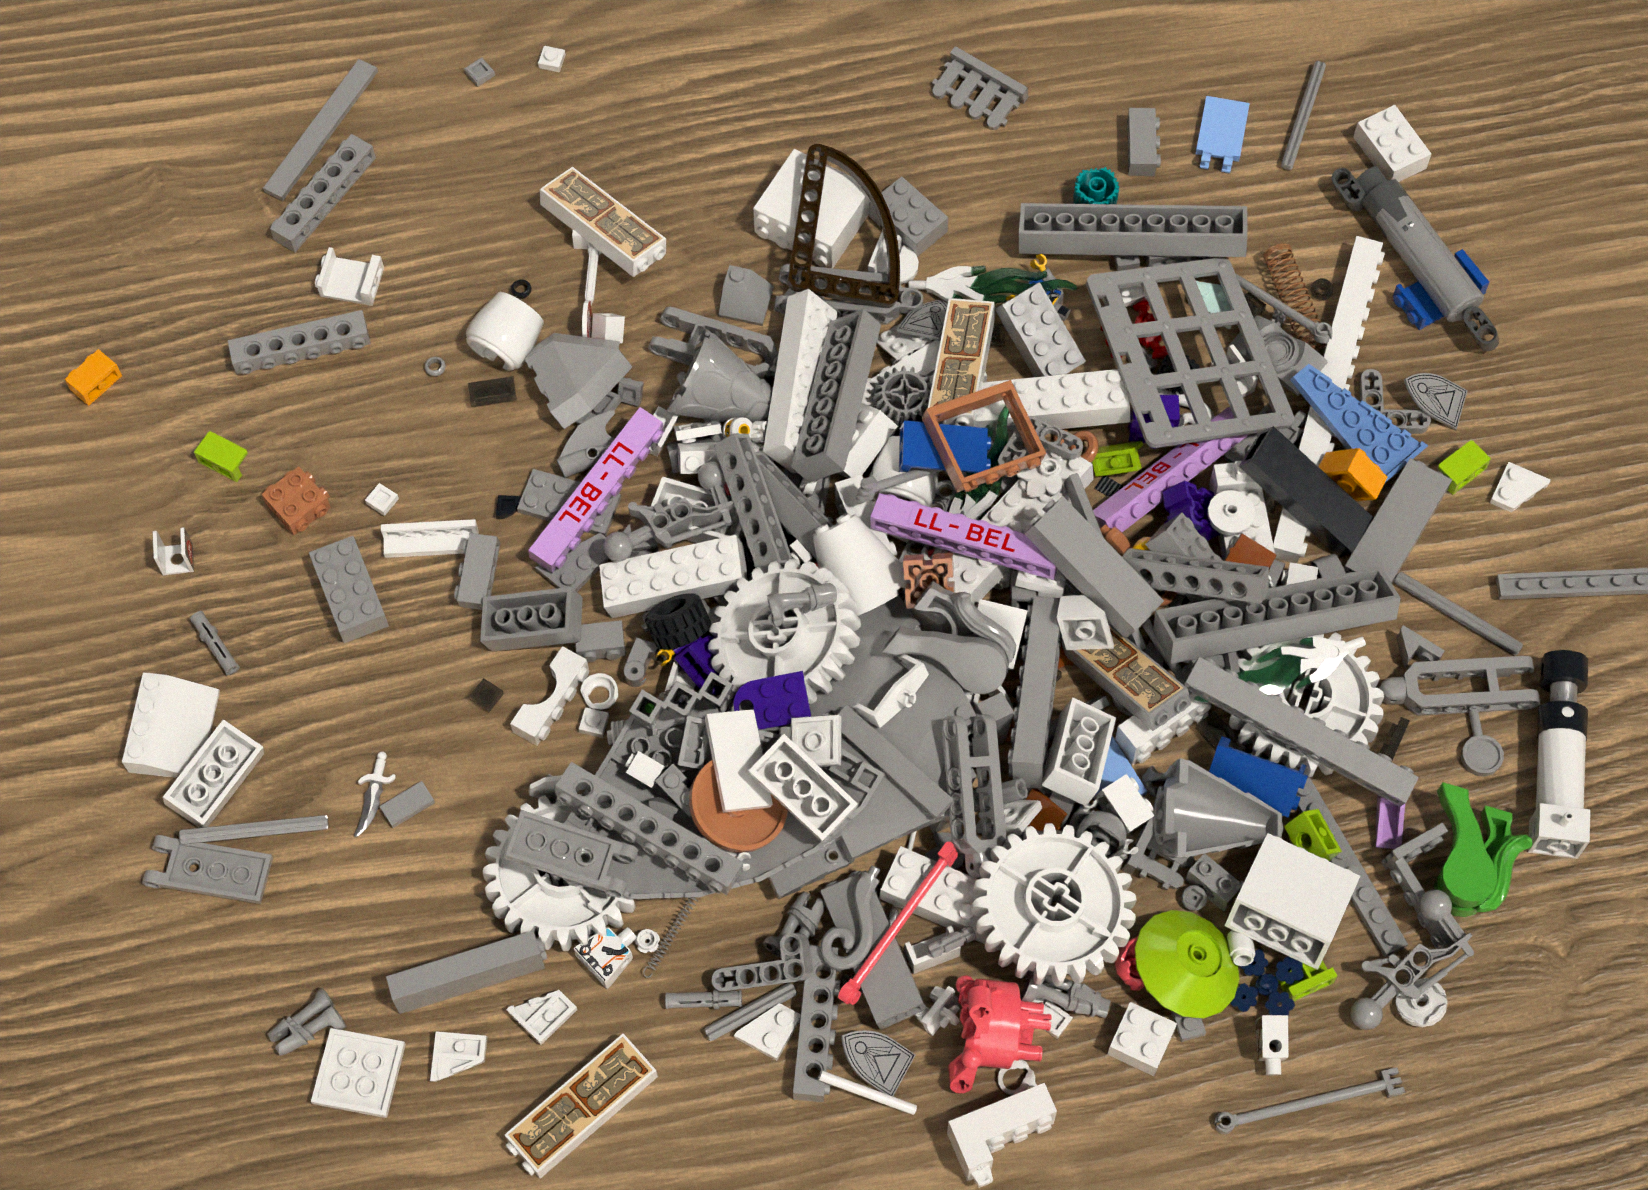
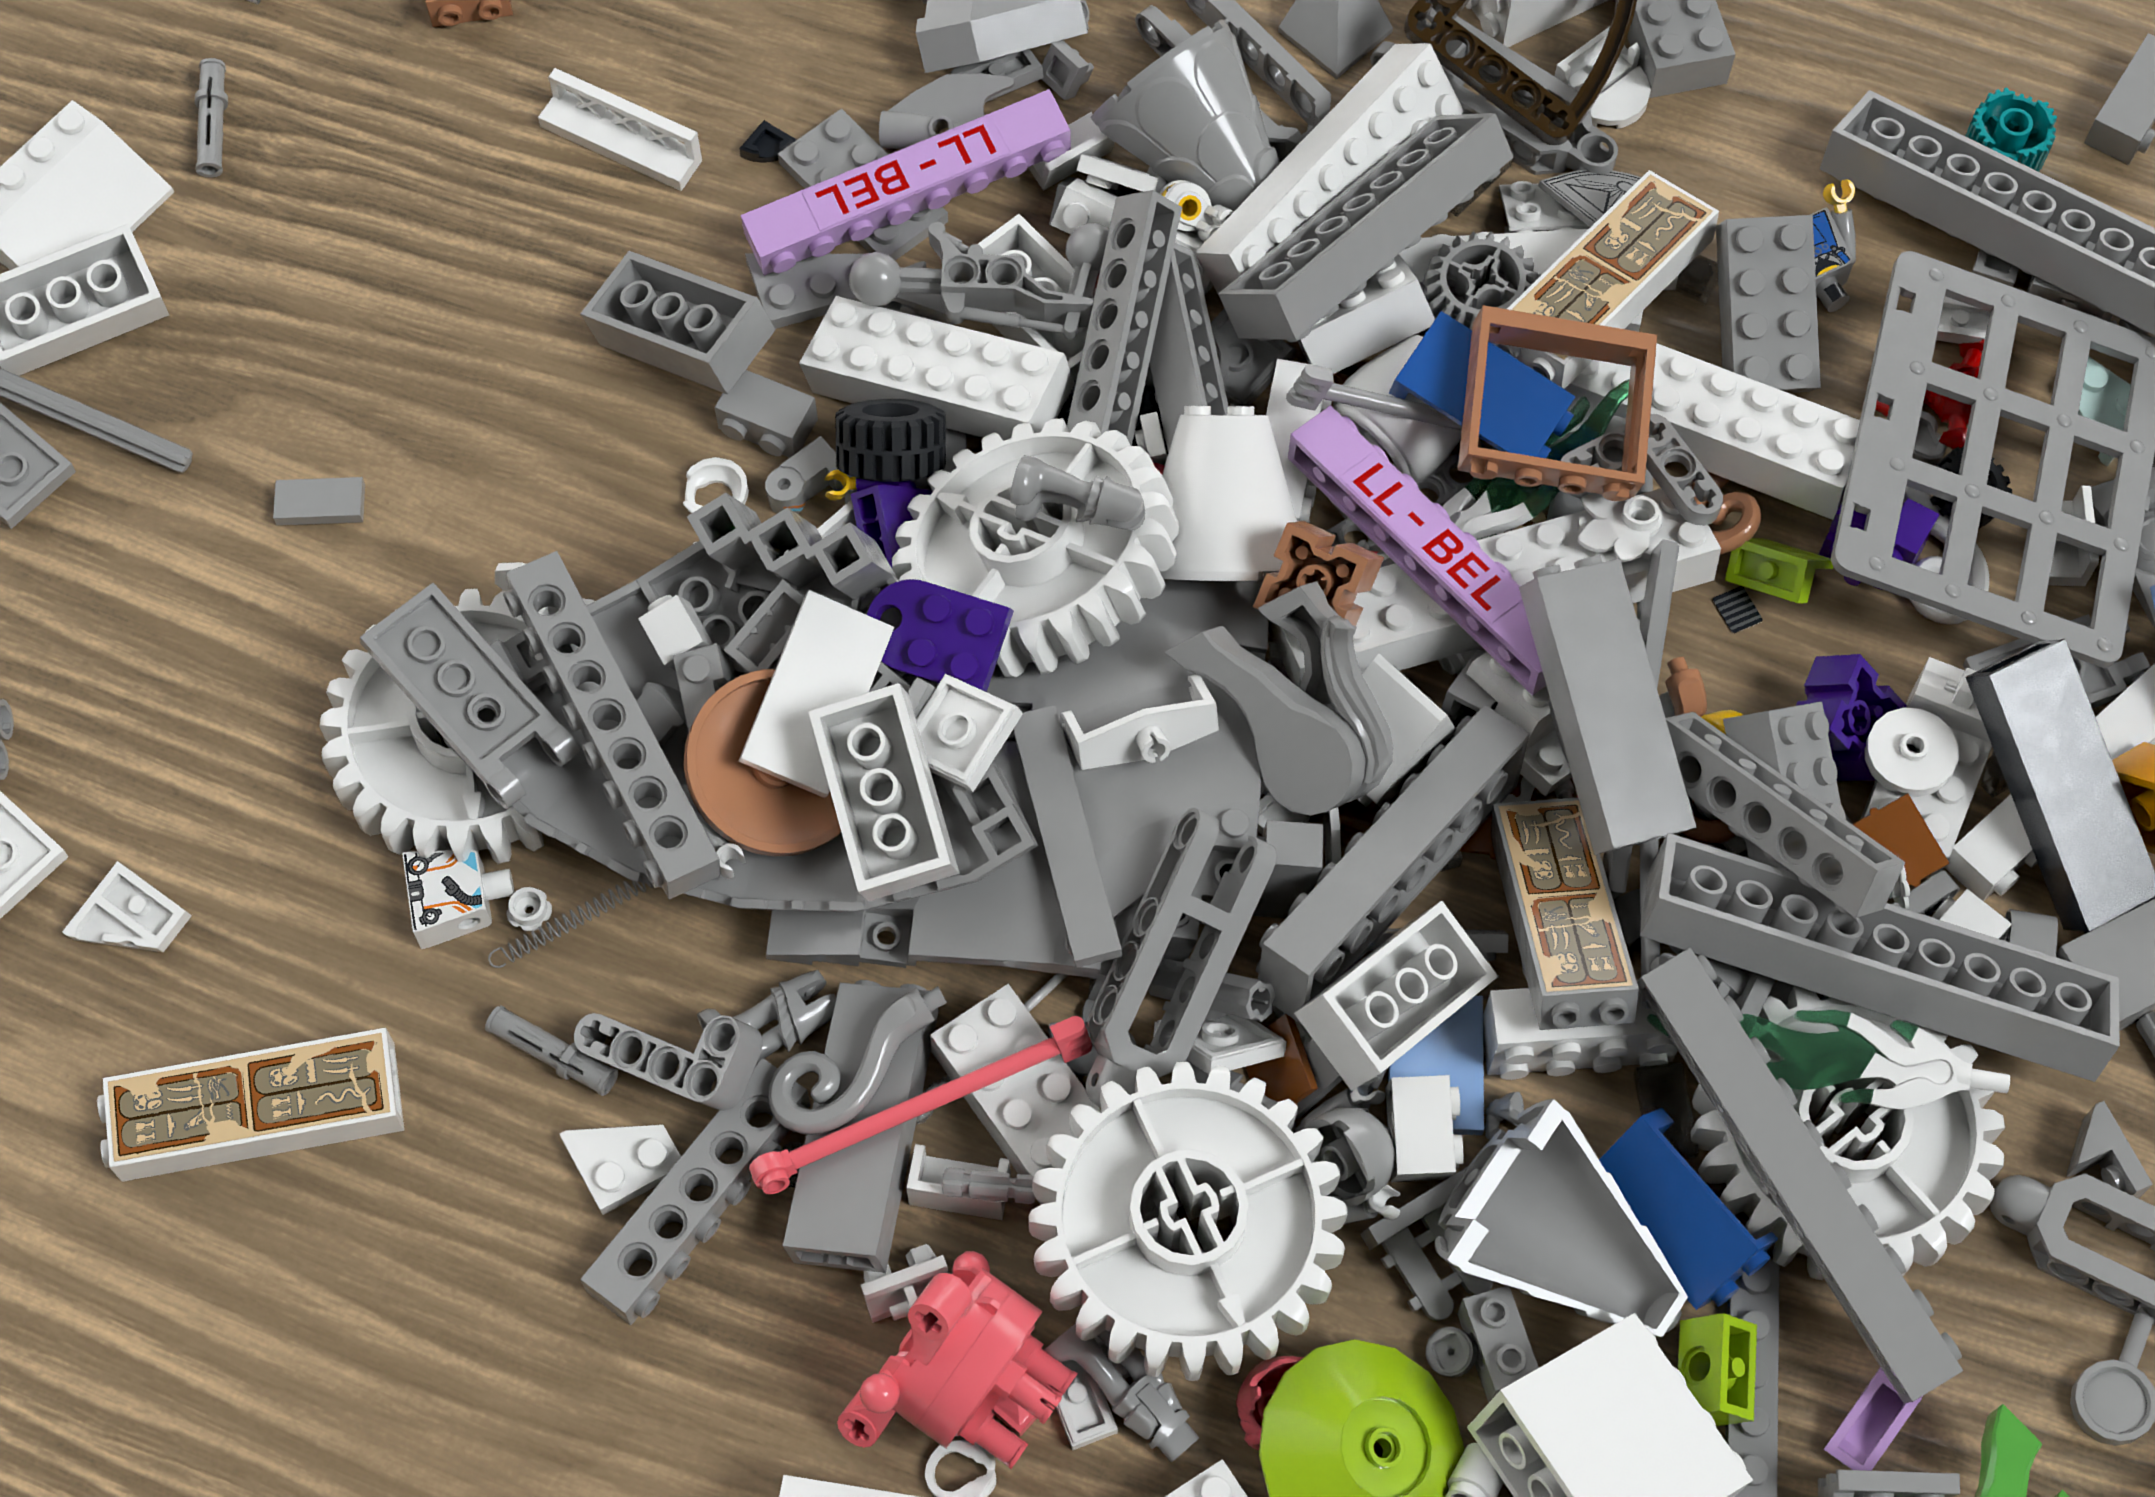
camera: 30 degrees right, 0 degrees up
(348, 589) = (449, 140): light grey brick -> none
(372, 795) = (282, 458): piece -> none
(381, 499) = (589, 38): white plate -> none
(466, 972) = (218, 796): light grey brick -> none
(477, 571) = (655, 209): light grey brick -> none
(486, 695) = (543, 402): clear smoke plate -> none
(534, 721) = (591, 480): white arch -> none
(543, 1015) = (295, 931): white wing -> none
(593, 722) = (672, 530): white plate -> none
(750, 1011) = (610, 1112): light grey axle -> none
(807, 487) = (1241, 349): white plate -> none
(867, 1092) = (701, 1350): white bar -> none
(877, 1059) = (754, 1307): light grey shield -> none
(955, 282) = (1732, 186): piece -> none
(1083, 624) = (1534, 792): white slope -> none
(1147, 488) = (1789, 643): lavender brick -> none
(1396, 734) = (1979, 1279): clear smoke plate -> none

